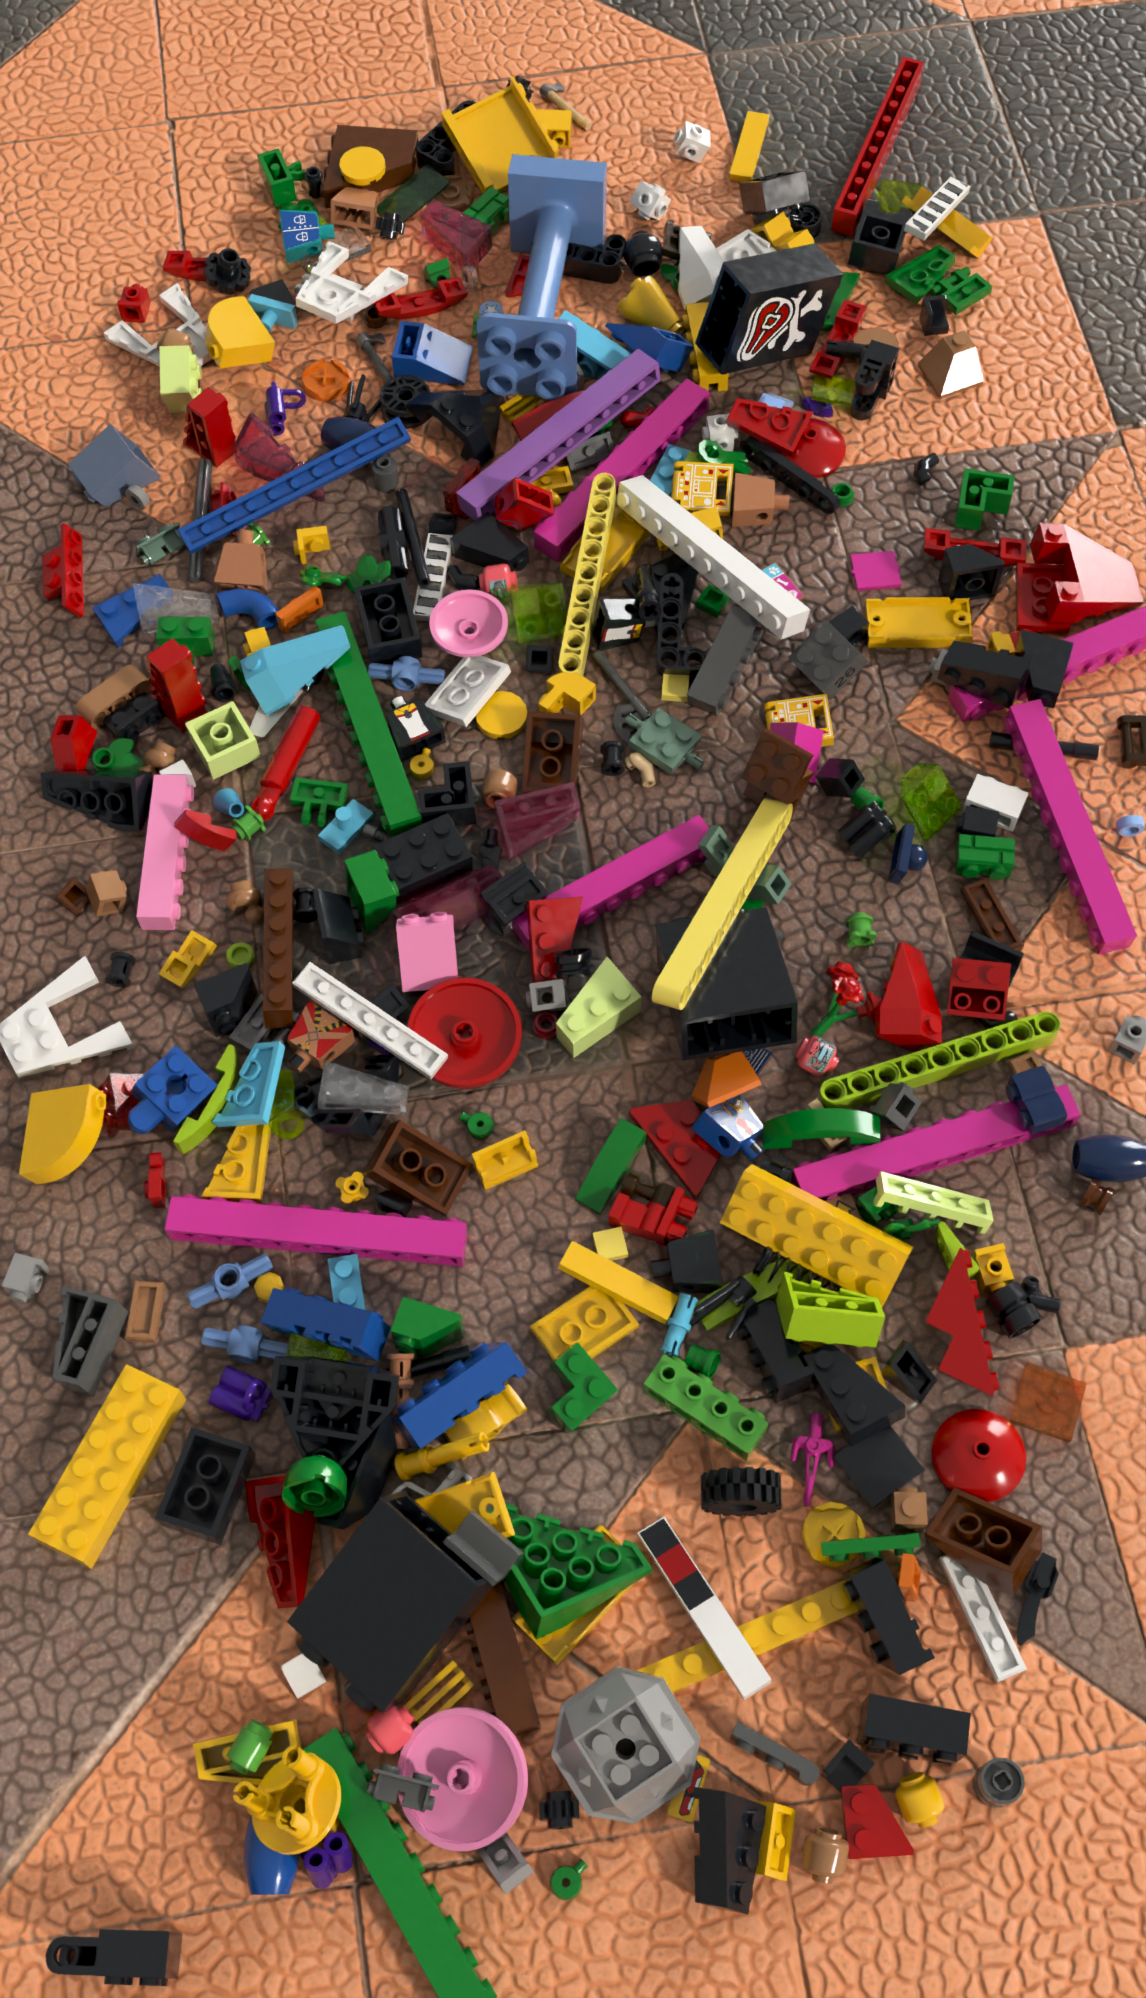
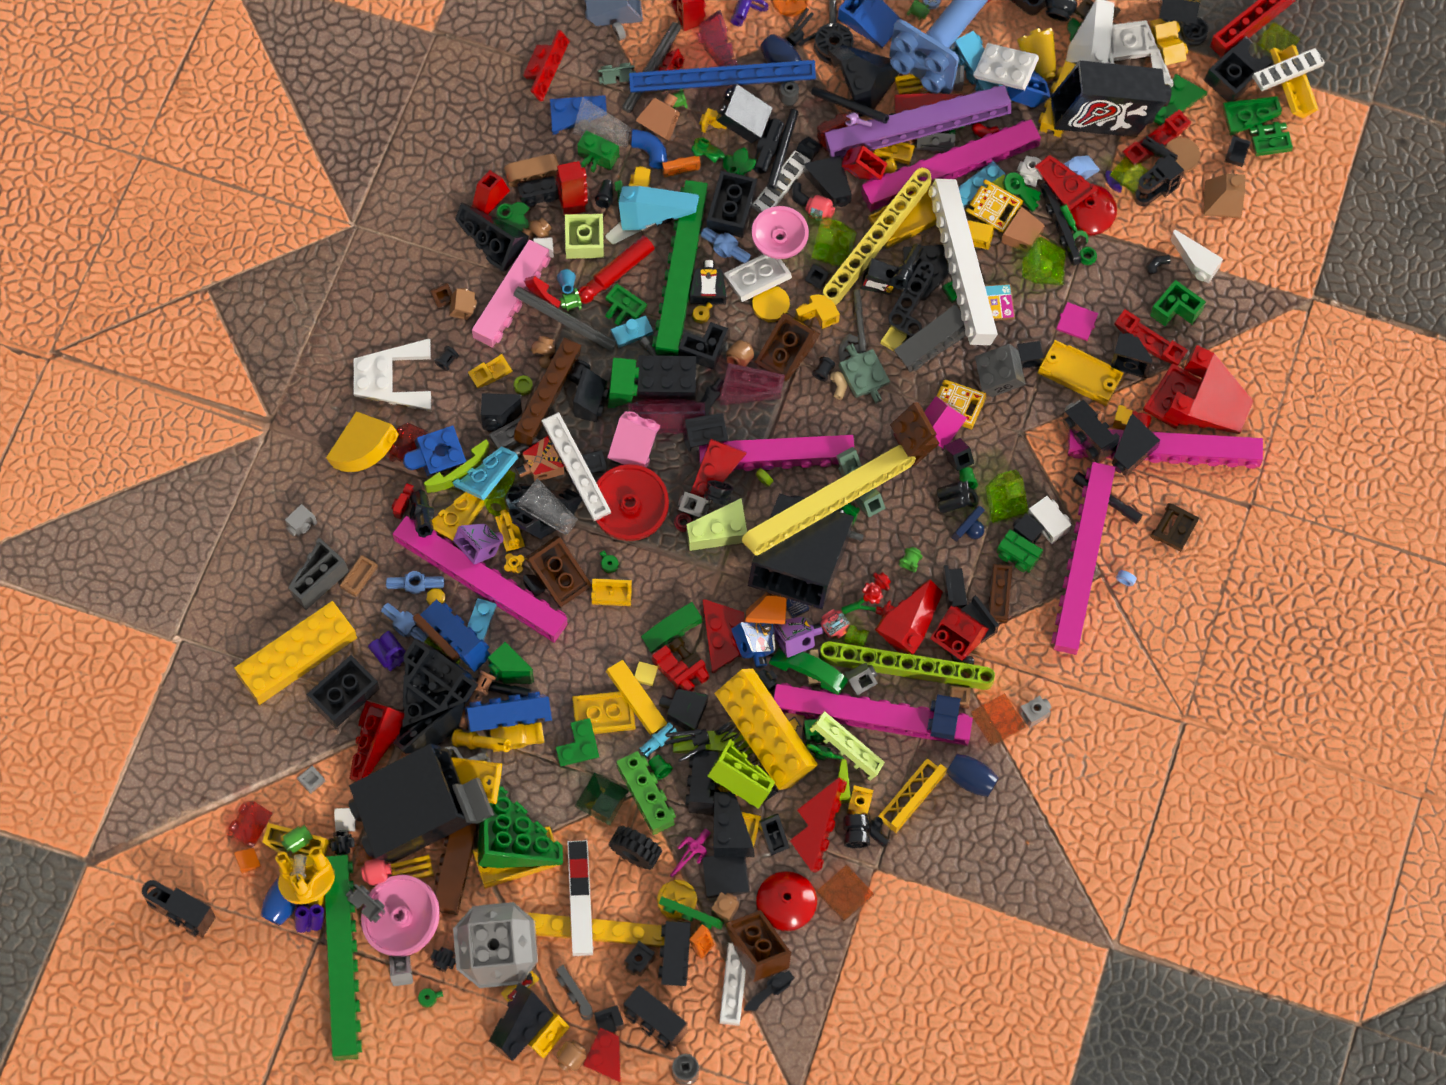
camera: 25 degrees right, 5 degrees up
(163, 1757) = (249, 823): none -> clear red bracket
(187, 1816) = (247, 860): none -> orange slope
(192, 1182) = (421, 513): none -> black piece
(222, 1639) = (311, 779): none -> light grey tile
(250, 848) = (564, 318): none -> dark grey axle
(277, 1792) = (299, 865): none -> clear pin
(288, 1183) = (478, 542): none -> medium lavender torso
(301, 1341) = (435, 637): none -> reddish brown tile
(316, 1486) = (401, 721): green cylinder -> none
(316, 1712) = (341, 842): none -> black gear
(322, 1149) = (511, 534): none -> yellow hinge
(344, 516) = (743, 113): none -> brick
(468, 451) = (849, 104): none -> black piece
(485, 461) = (855, 119): none -> lavender hand
(617, 920) = (764, 477): none -> lime tile
(628, 328) = (1006, 66): none -> white plate
(649, 1446) = (602, 798): none -> clear green slope
(780, 1095) = (796, 635): none -> medium lavender torso
(789, 452) = (1071, 222): none -> green piece
(799, 524) = (1044, 263): none -> clear neon green slope
(835, 1636) = (639, 967): none -> black brick
(855, 1058) = (856, 636): none -> clear neon green wheel
(919, 1799) = (638, 1056): yellow head -> none
(933, 939) = (954, 587): none -> black panel
(963, 440) = (1198, 259): none -> white slope
(1062, 1224) = (918, 797): none -> yellow fence
(1092, 1073) = (998, 719): none -> clear orange tile
(1096, 1196) = (949, 793): reddish brown wheel -> none

